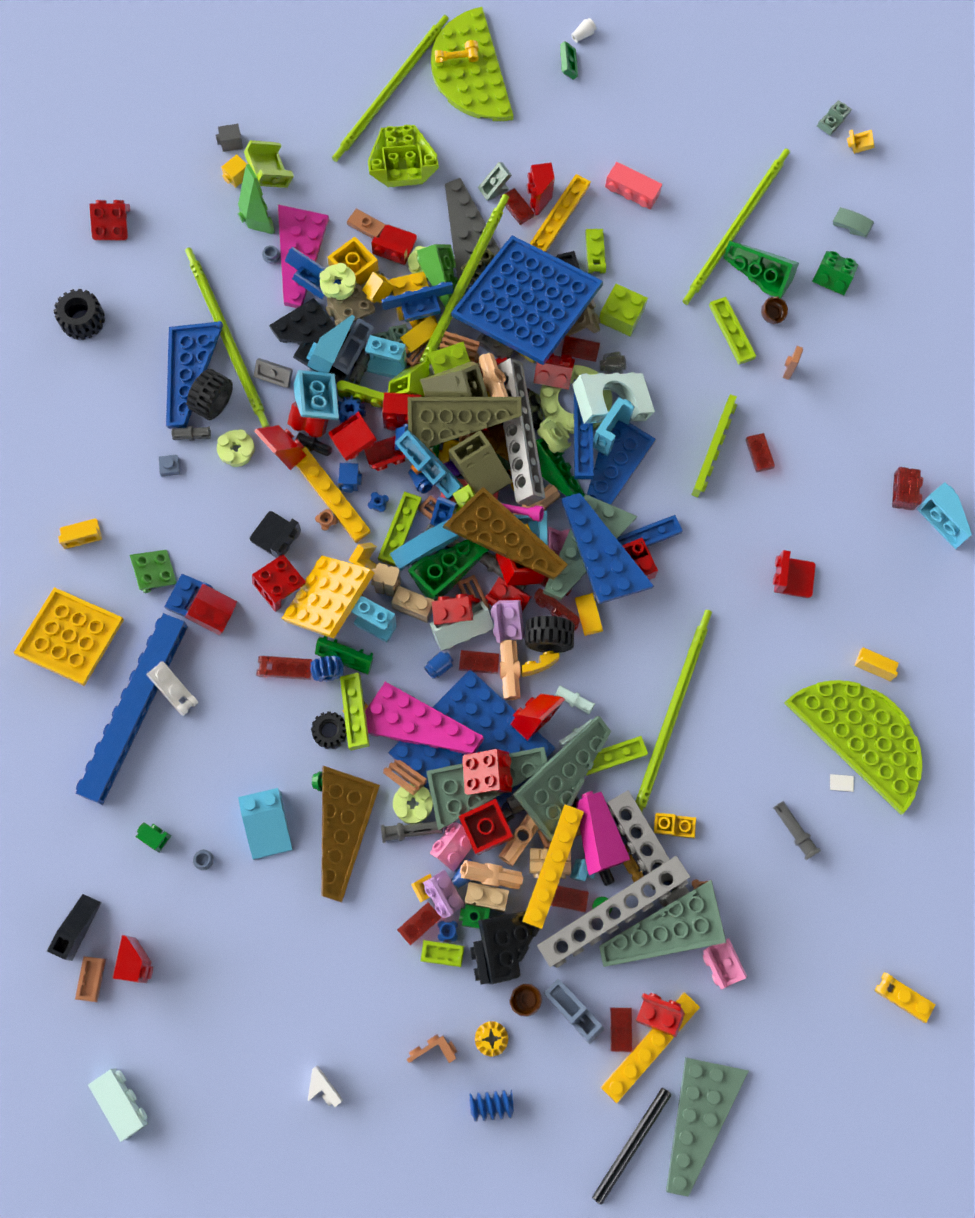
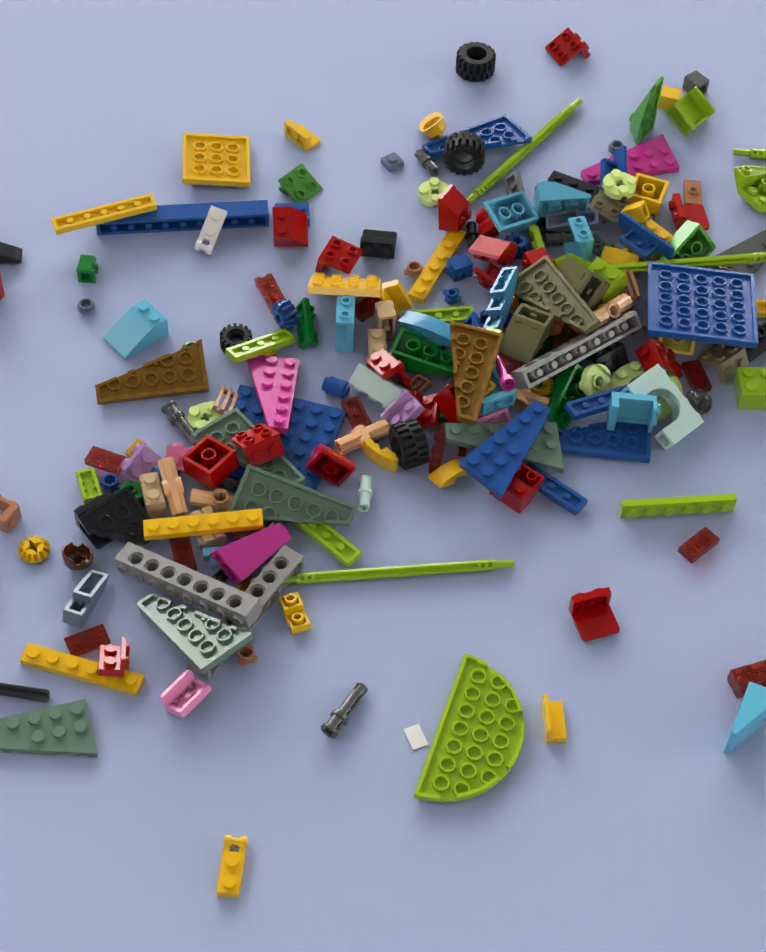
camera: 65 degrees right, 20 degrees down
(94, 789) = (103, 214): none -> yellow plate
(144, 401) = (433, 125): none -> yellow piece

